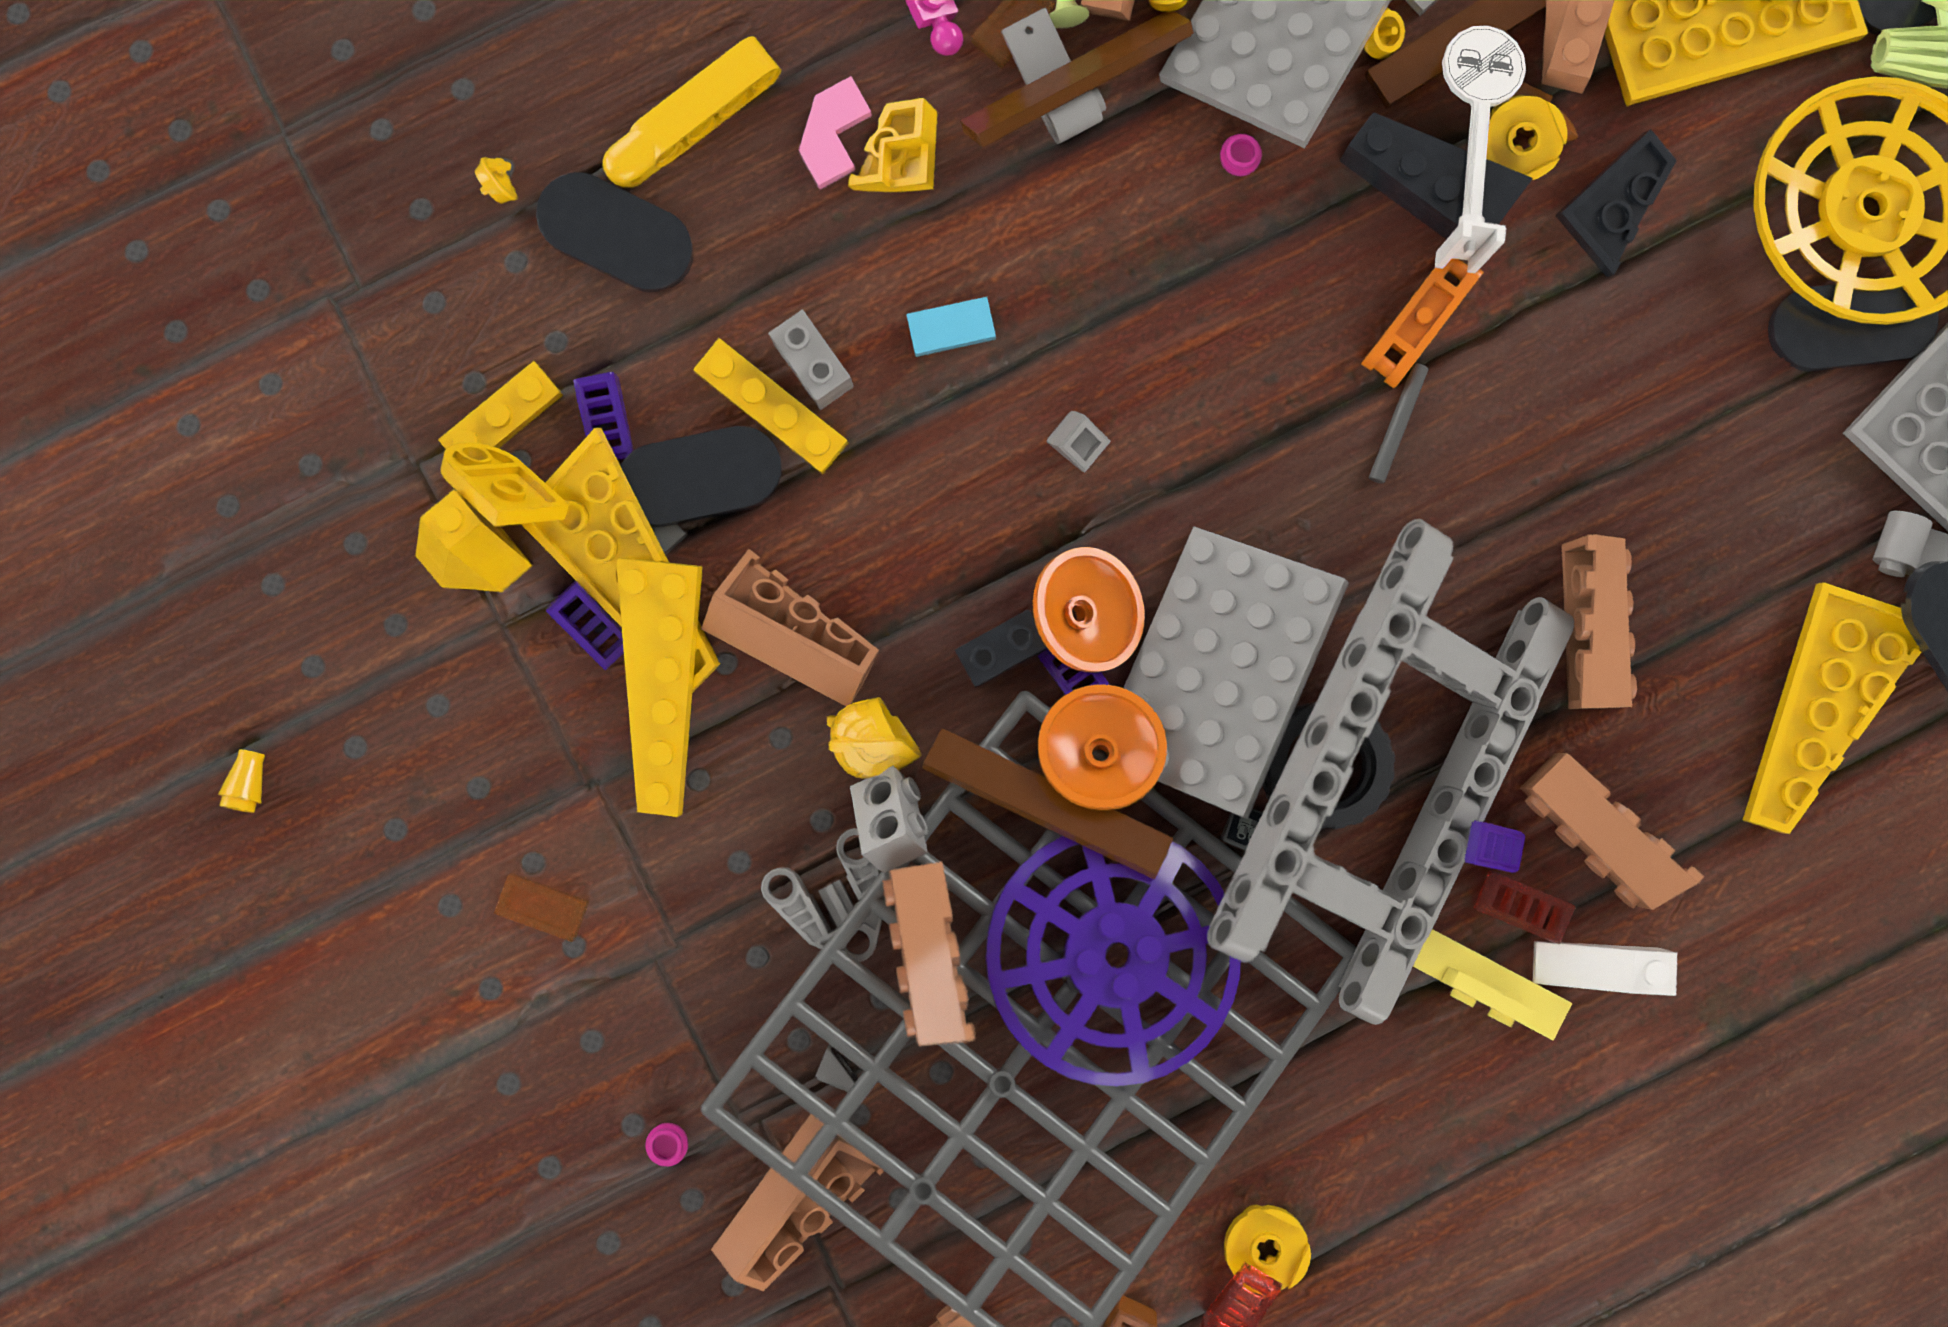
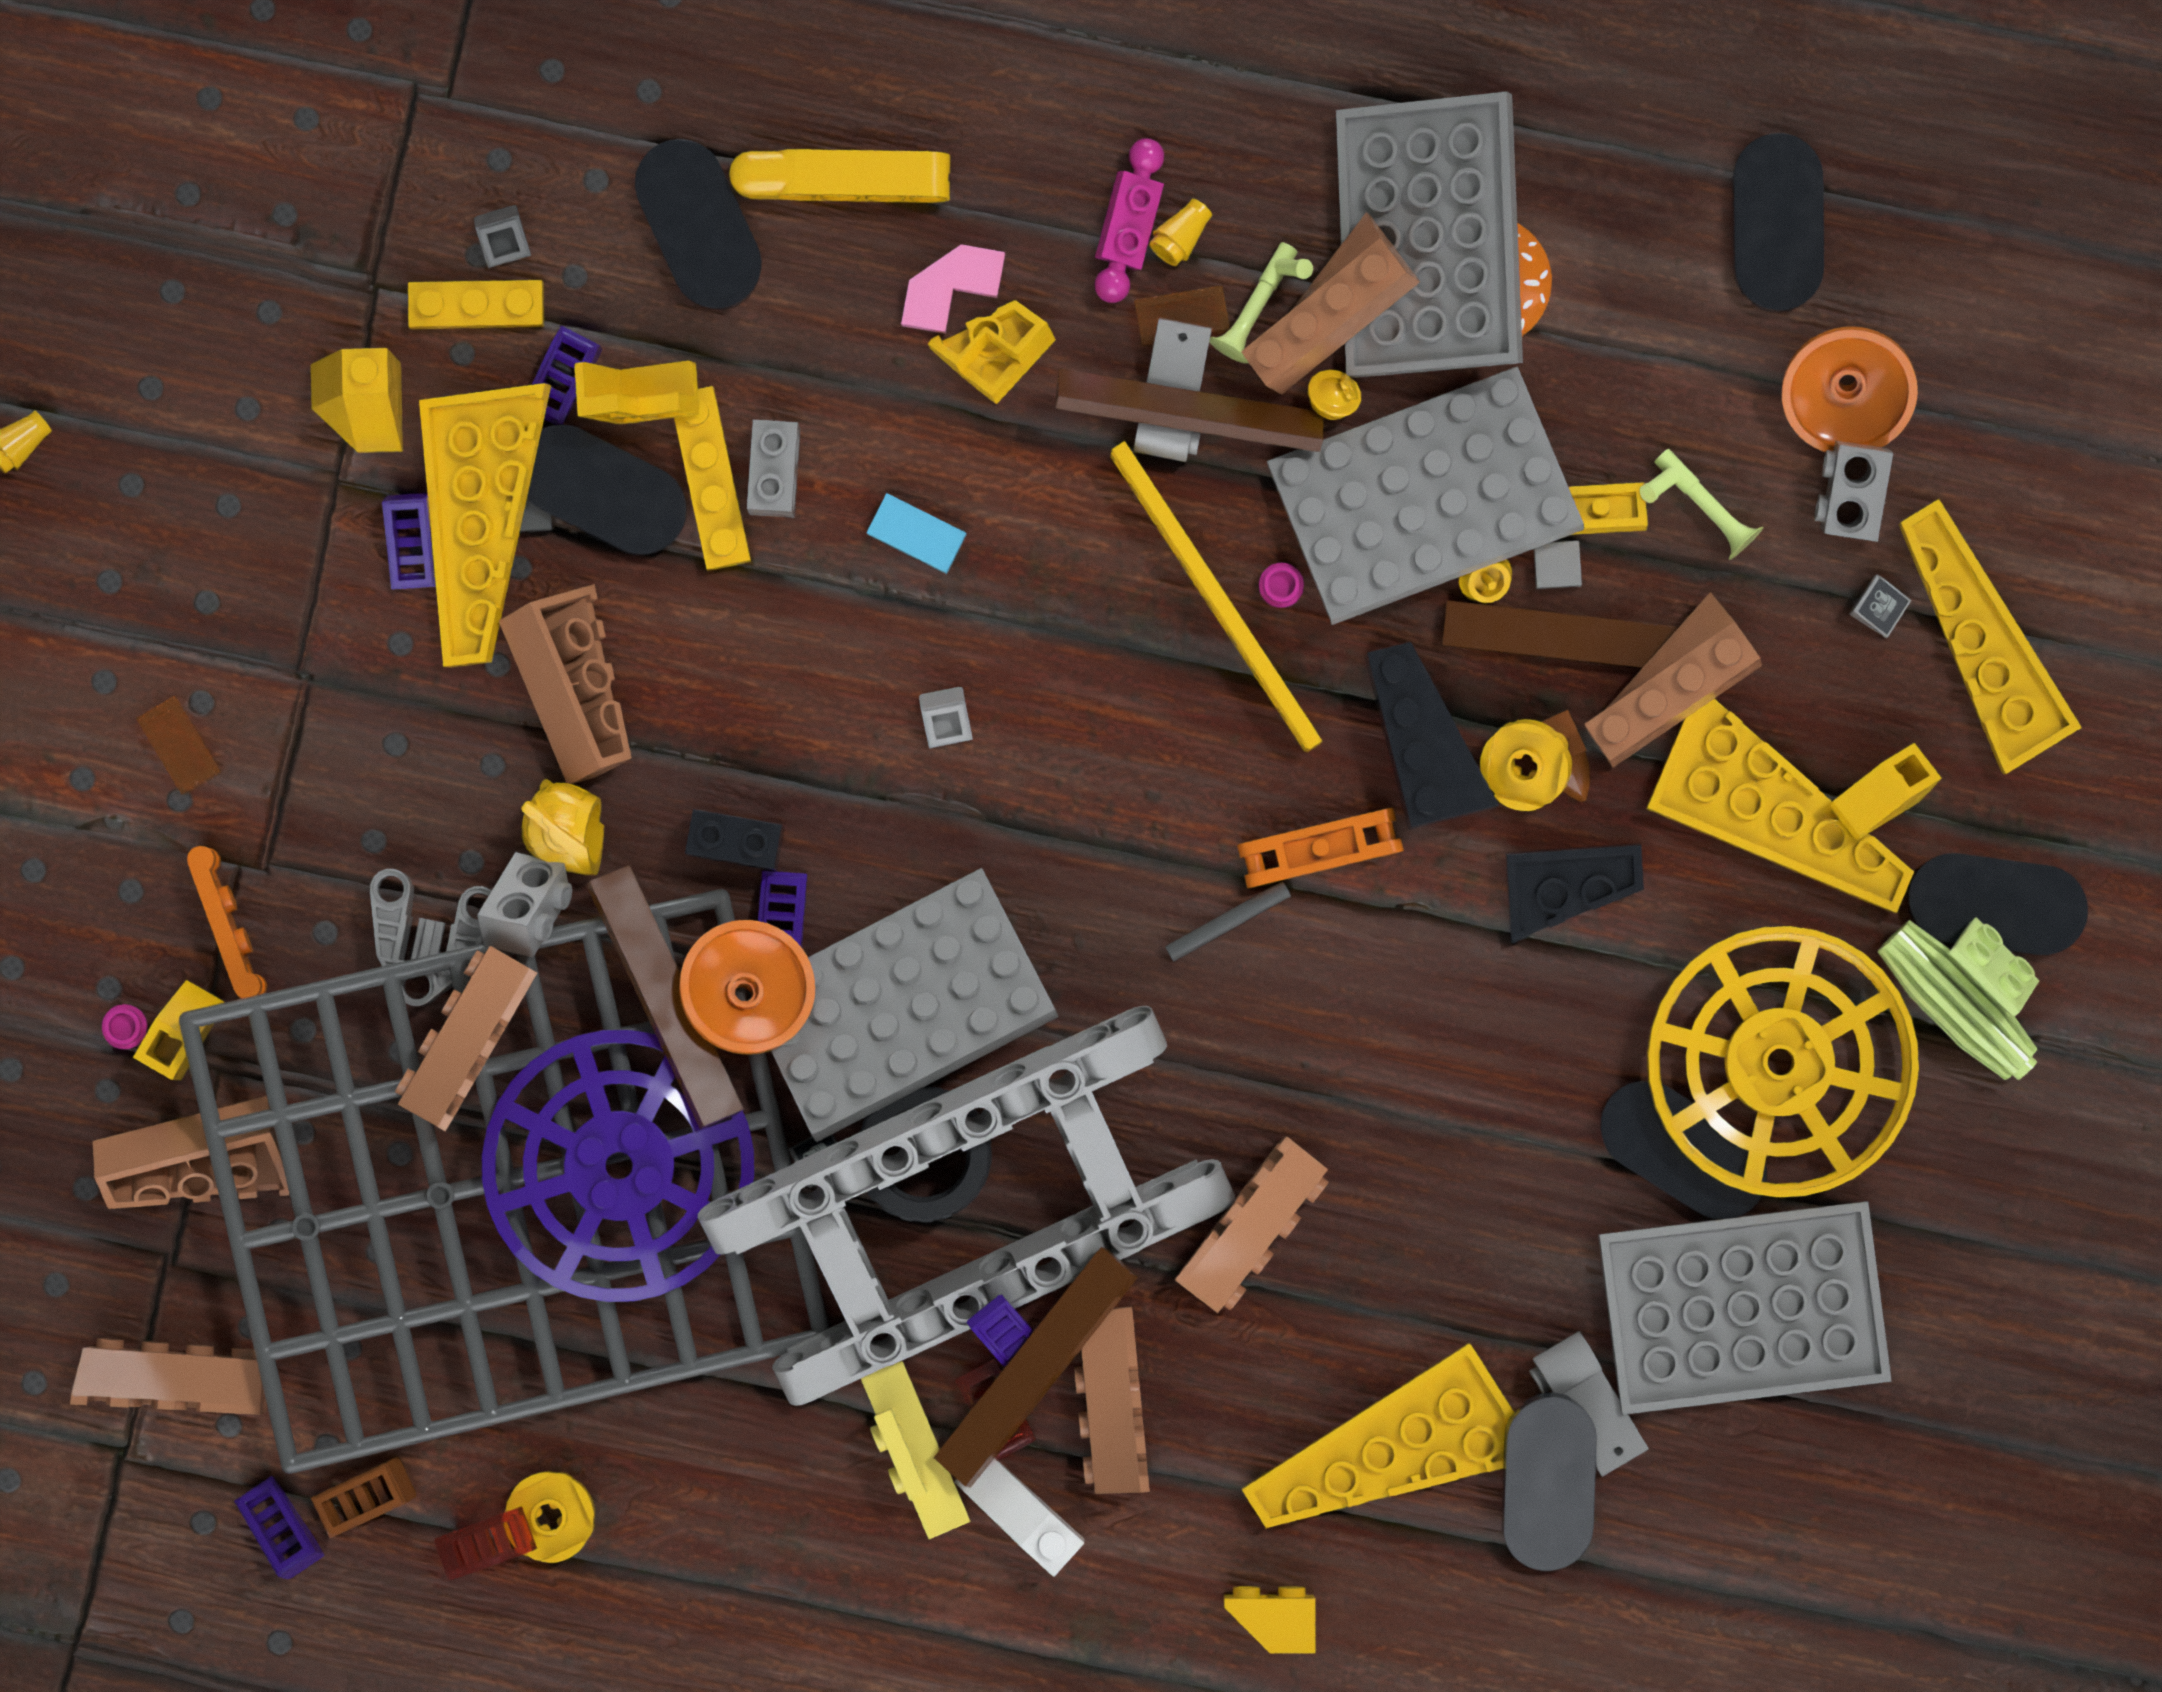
camera: 40 degrees right, 0 degrees up
(480, 354) = (502, 236): none -> dark grey slope
(495, 180) = (633, 101): yellow hat -> none
(500, 485) = (428, 369): yellow tile -> none
(659, 655) = (451, 608): yellow wing -> none
(664, 1001) = (218, 905): none -> orange plate
(670, 384) = (637, 392): none -> yellow panel
(705, 1140) = (163, 1044): none -> yellow slope
(835, 1070) = (313, 1075): light grey slope -> none
(1105, 604) = (856, 868): orange dish -> none
(1203, 198) = (1215, 597): none -> yellow tile
(1483, 70) = (1532, 681): white piece -> none
(1535, 853) = (1035, 1367): none -> reddish brown tile
(1853, 891) = (1276, 1621): none -> yellow slope

